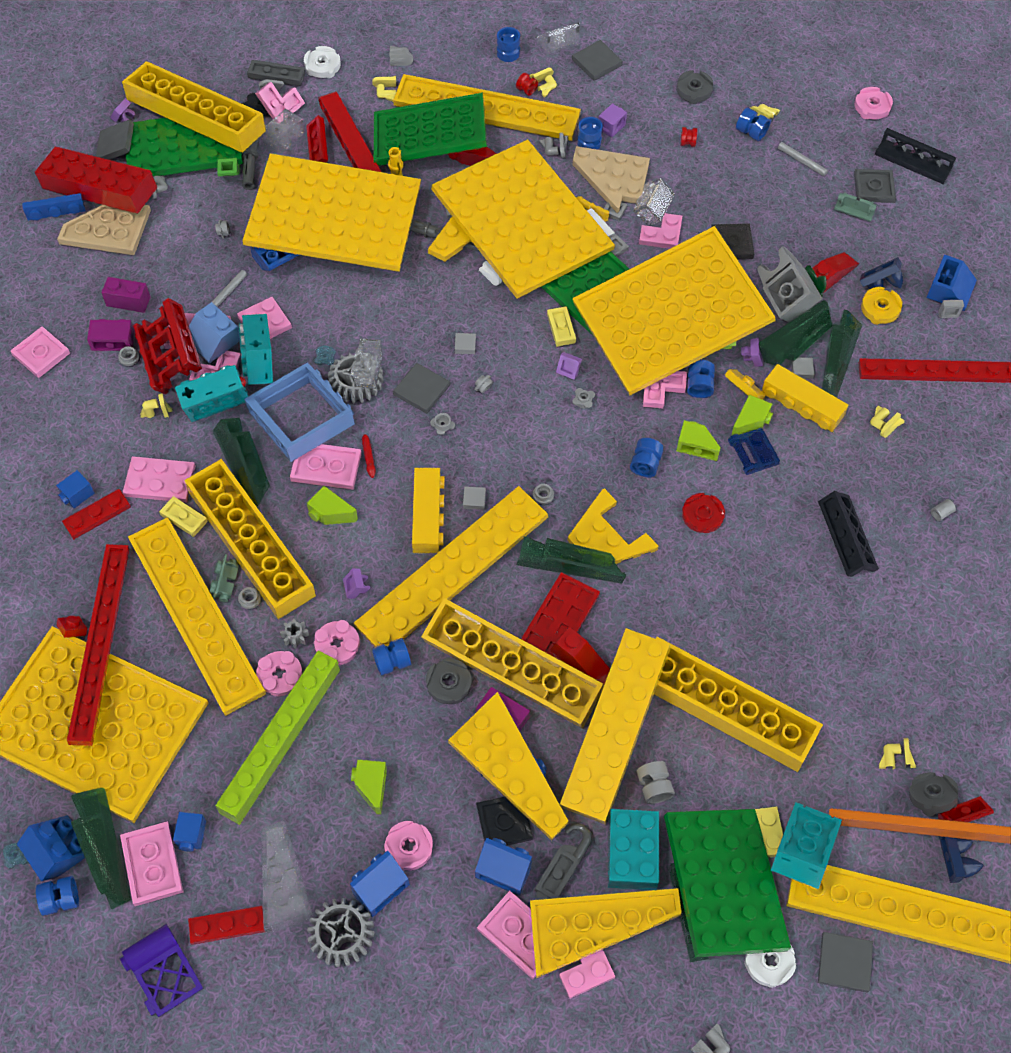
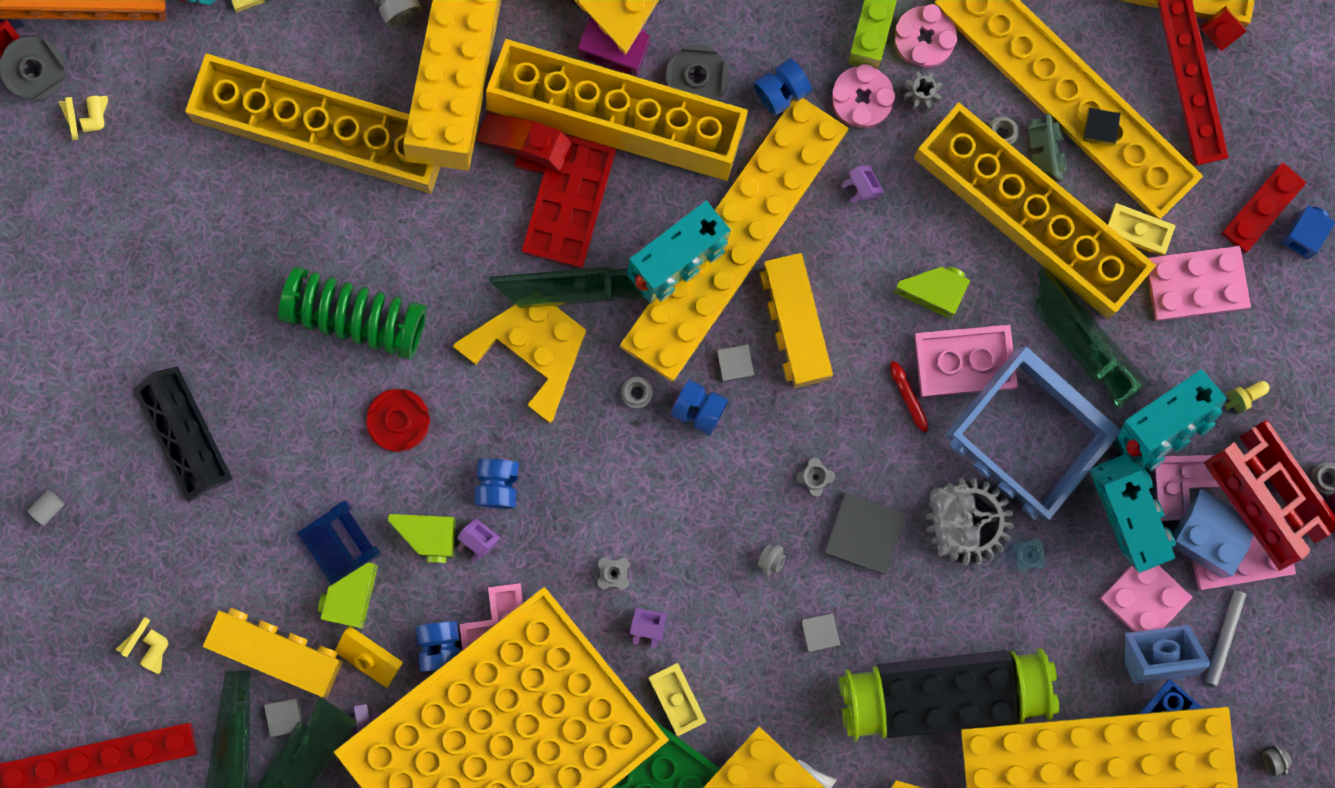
camera: 165 degrees right, 20 degrees up
(182, 578) = (1101, 126): none -> black tile
(267, 279) = (1164, 654): none -> medium blue slope
(400, 289) = (948, 694): none -> black brick
(496, 545) = (679, 253): none -> teal piece
(502, 470) = (688, 404): none -> blue wheel
(664, 432) = (478, 539): none -> medium lavender tile
(758, 594) = (405, 341): none -> green piece

